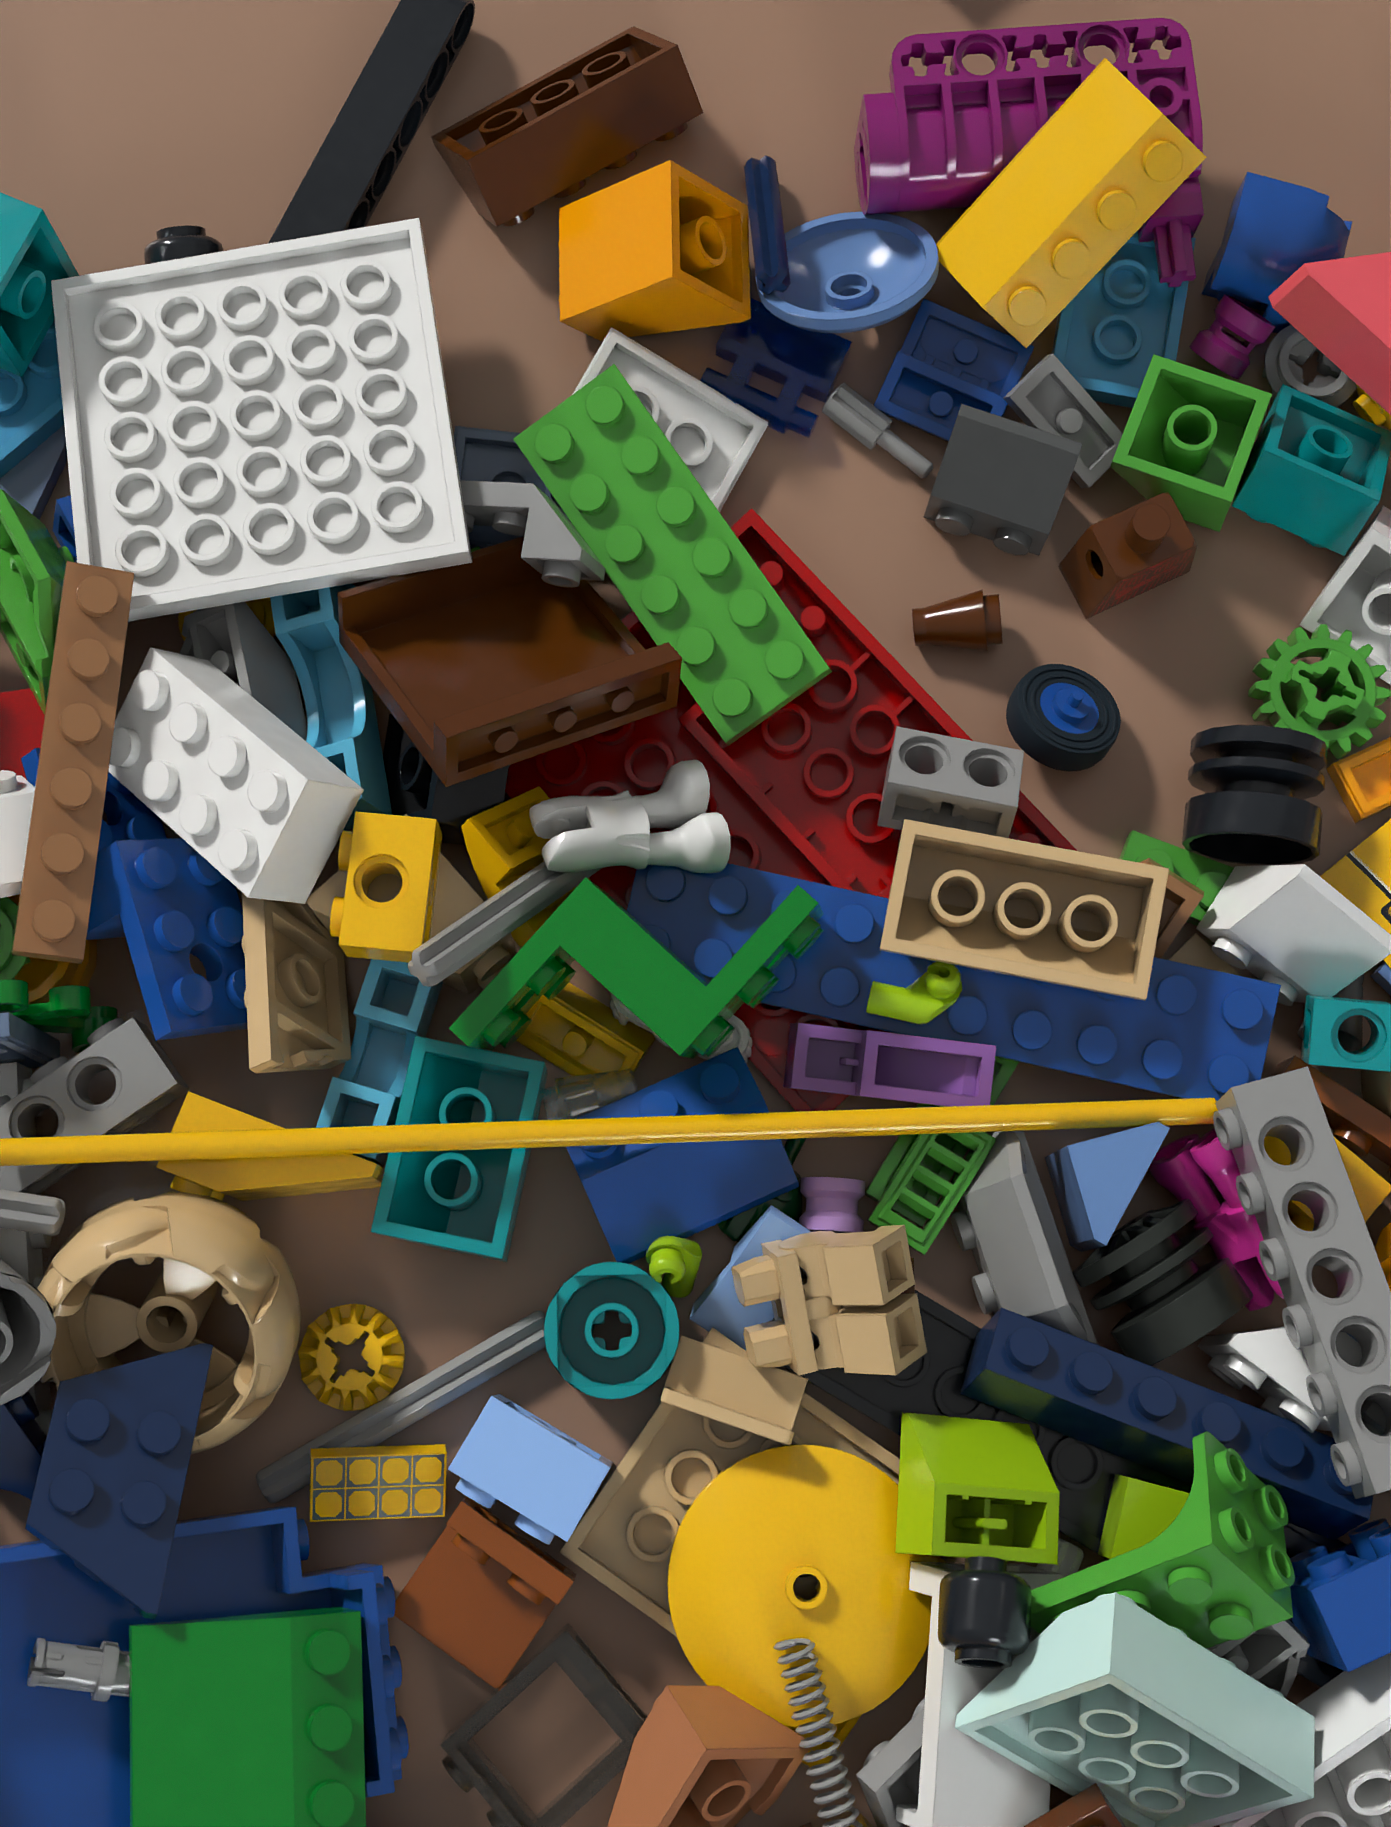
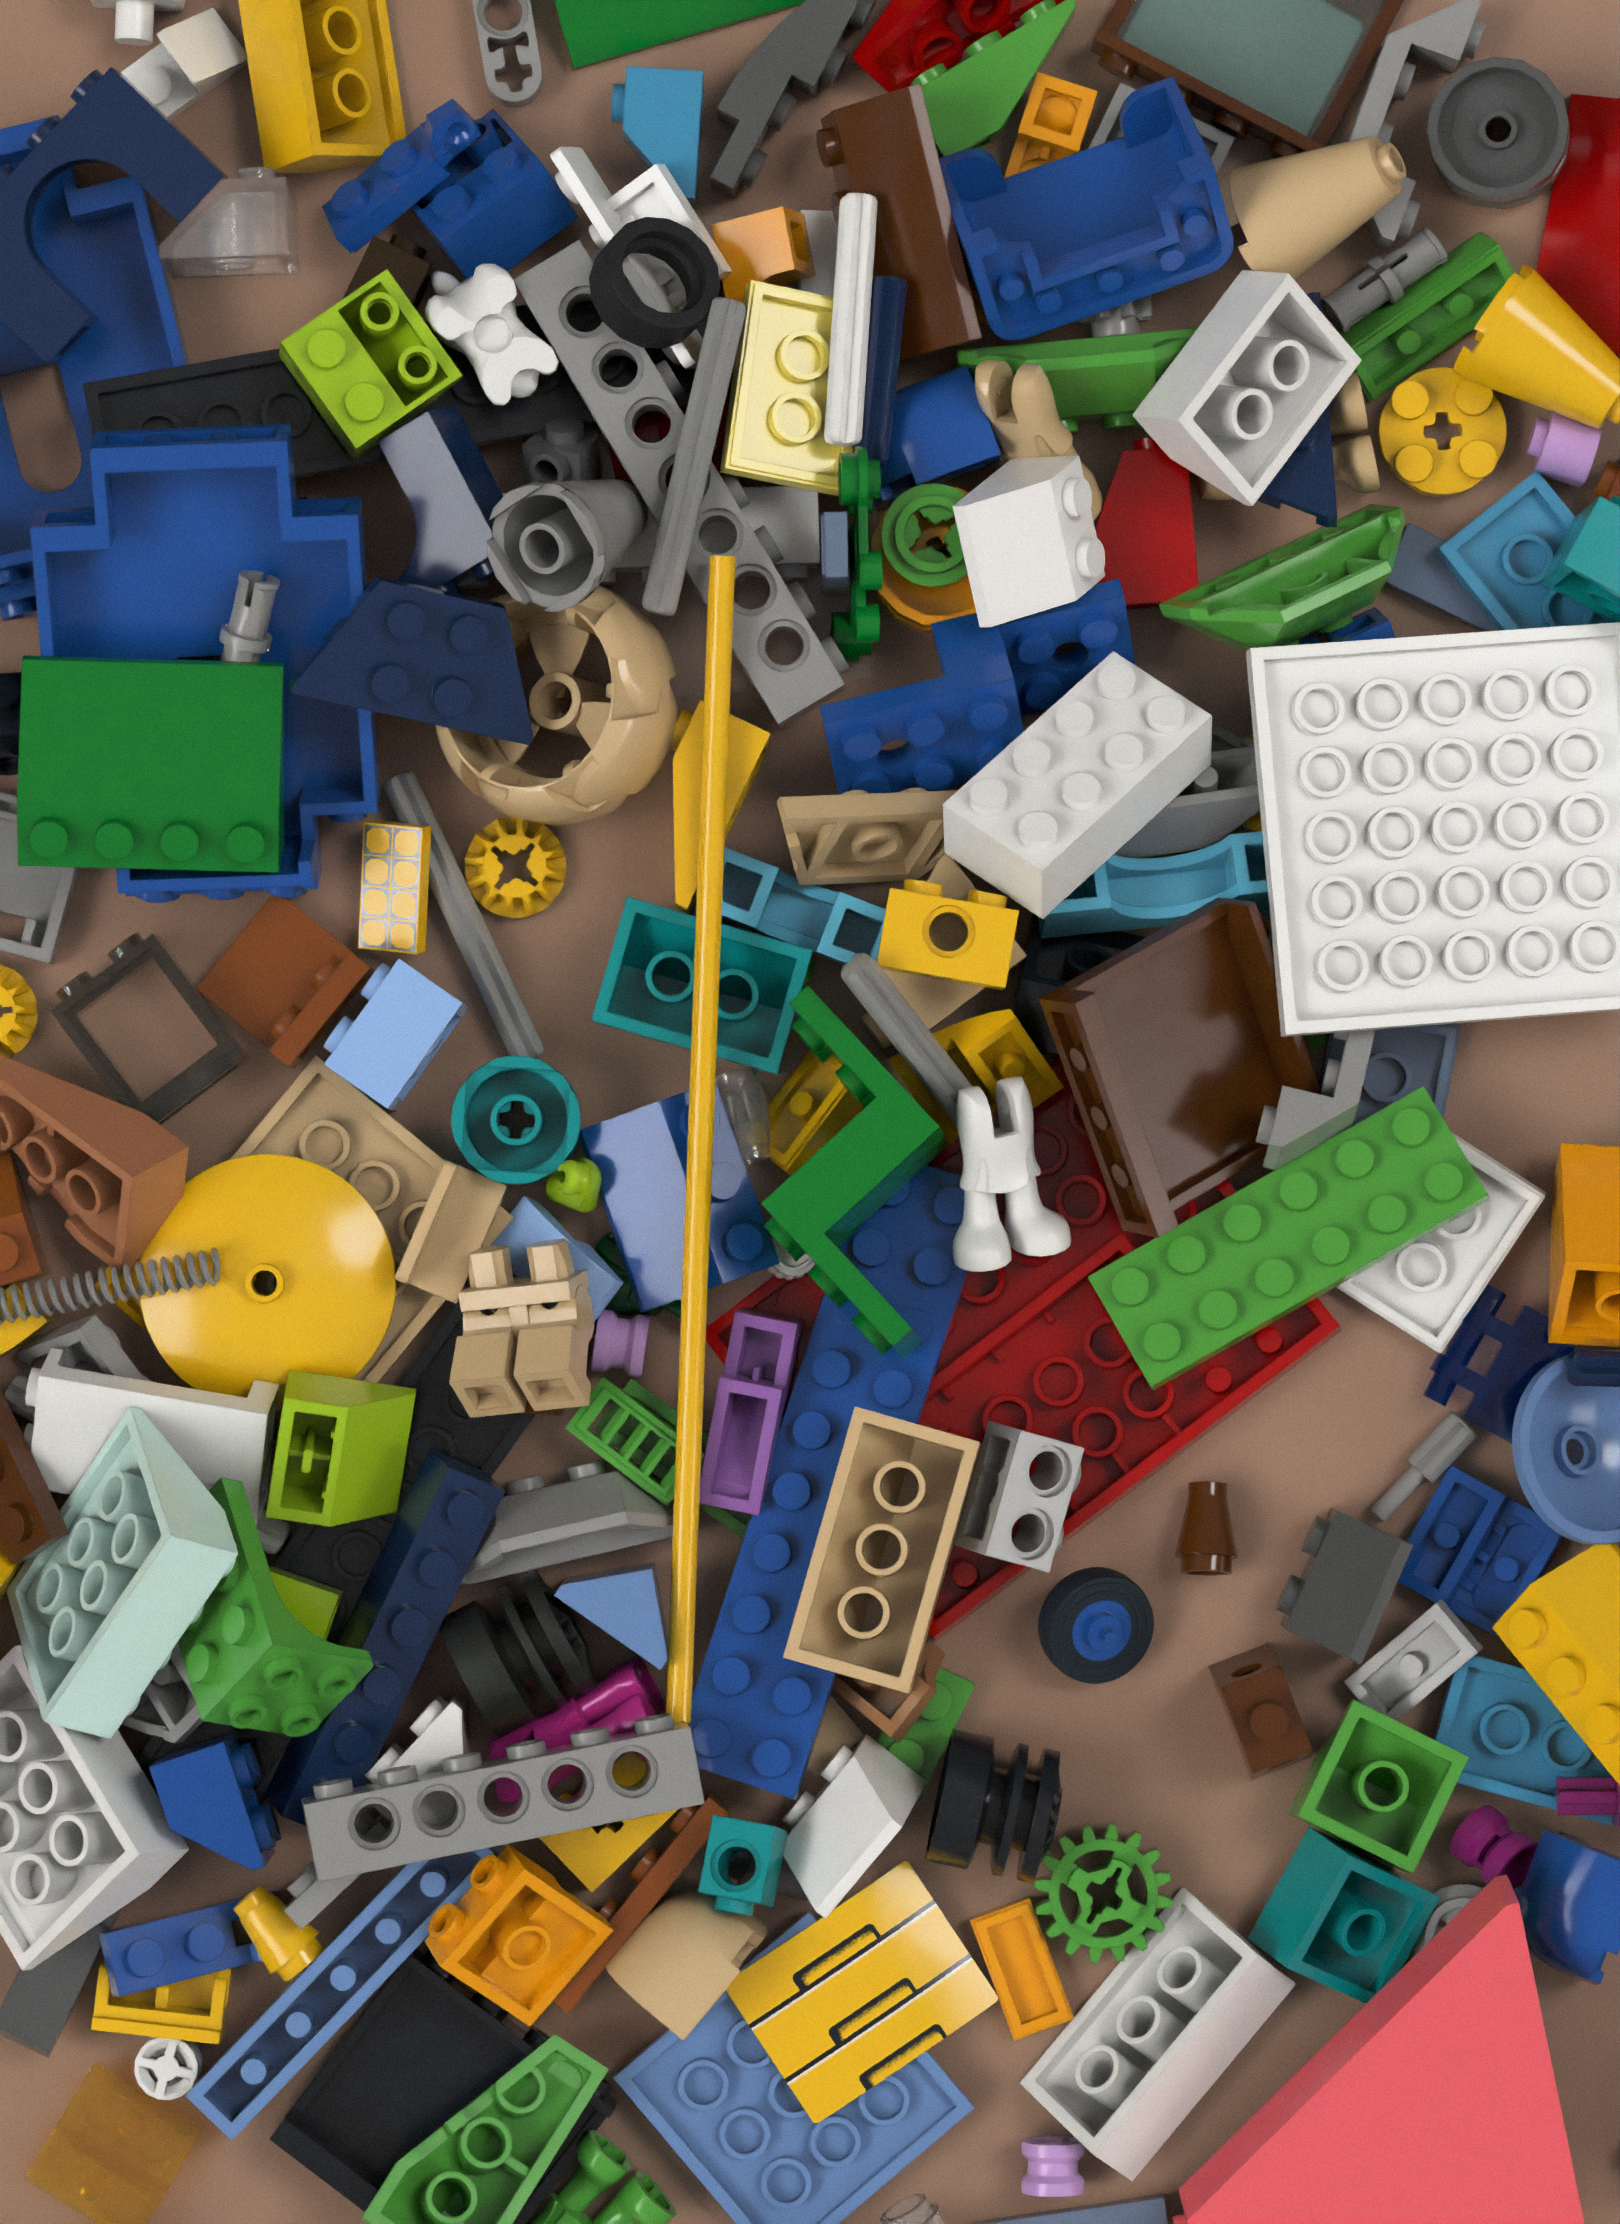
camera: 100 degrees right, 10 degrees up
(73, 764) = (1097, 639): medium nougat plate -> none
(920, 1000) = (806, 1443): lime arm -> none
(984, 1613) = (228, 1440): black head -> none

